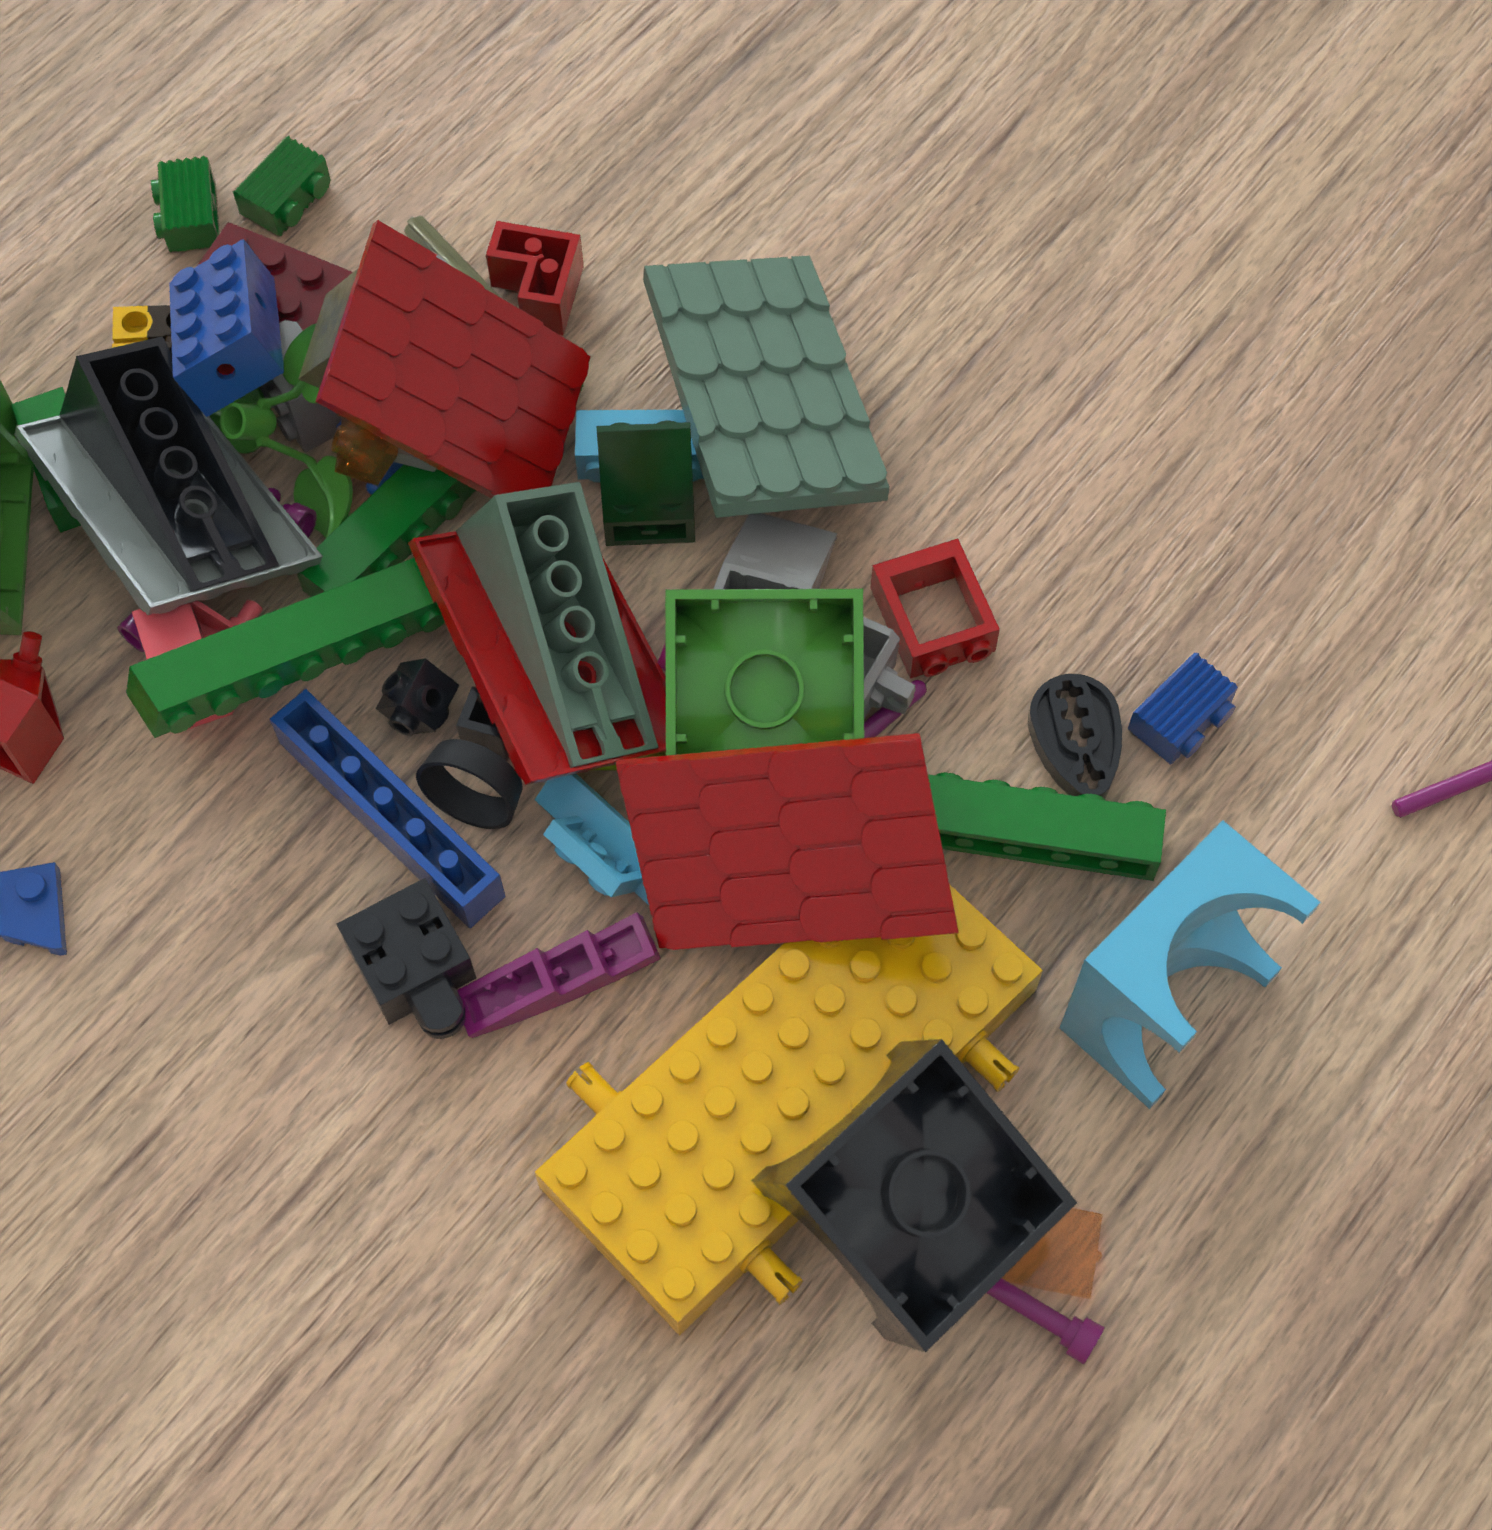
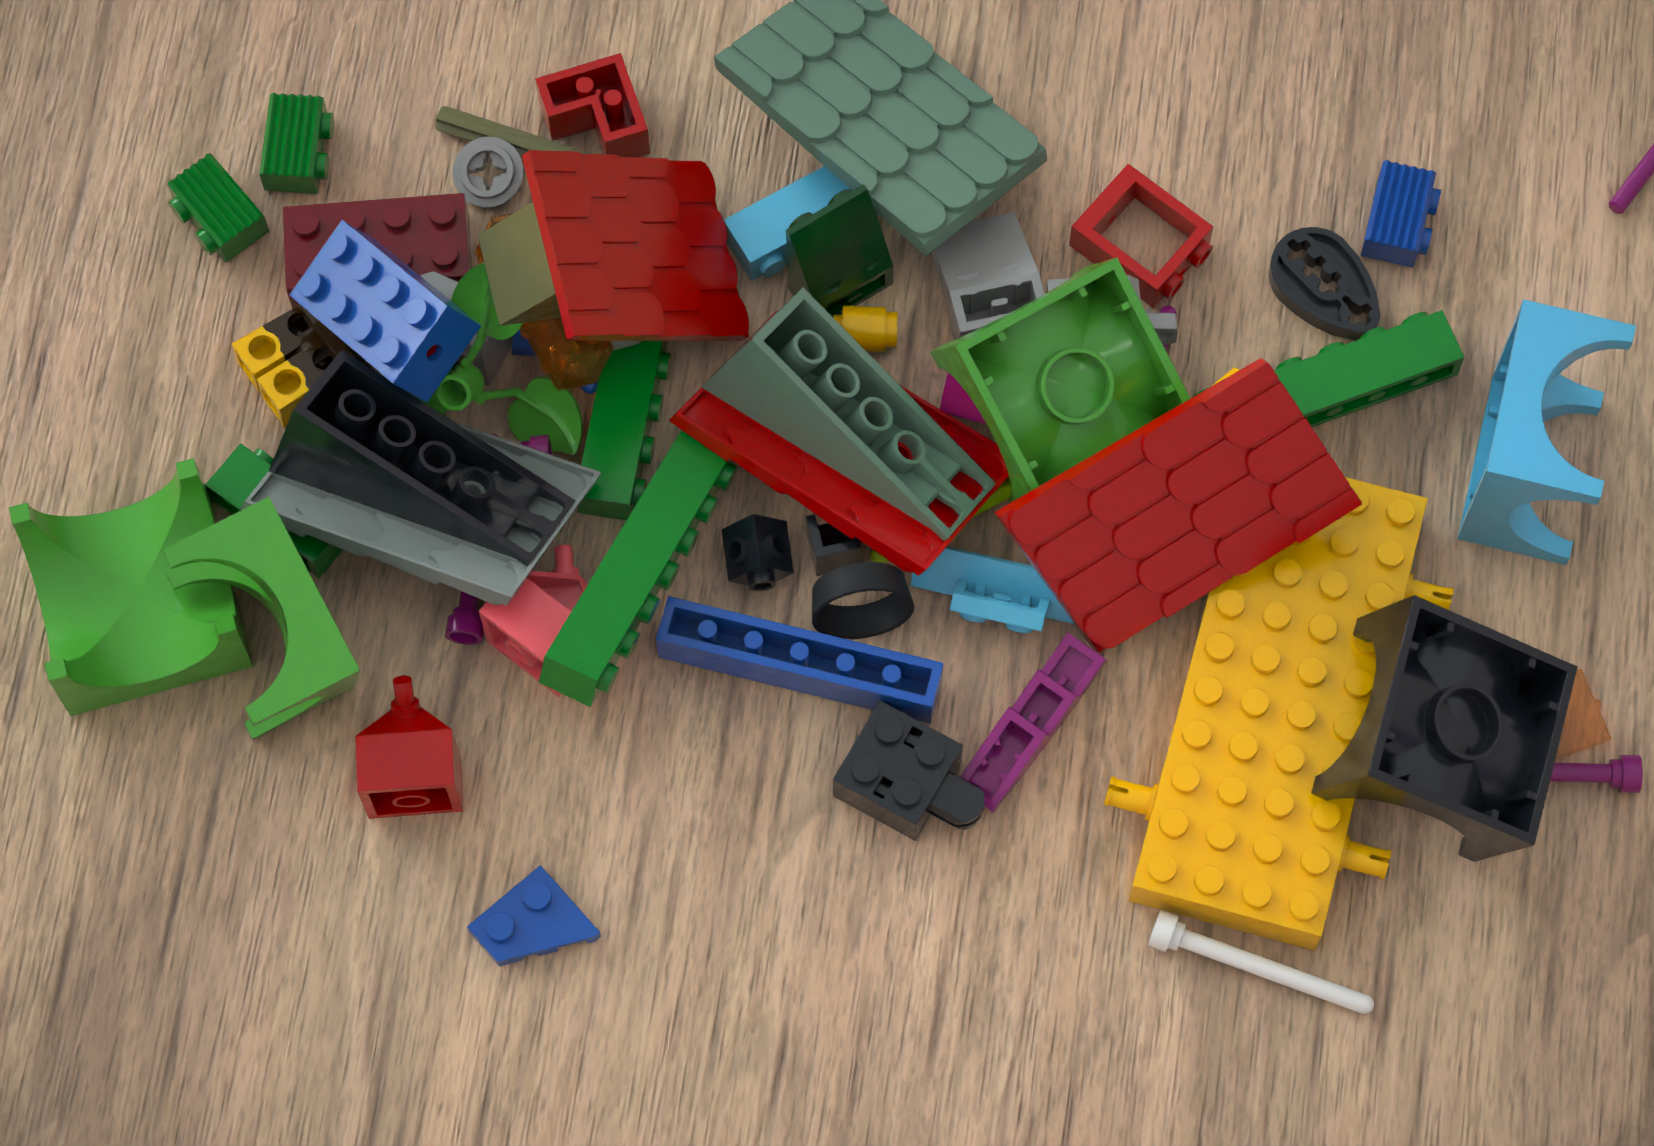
camera: 30 degrees left, 5 degrees up
(551, 1239) = (1172, 934): none -> white piece
(641, 563) = (870, 326): none -> yellow brick

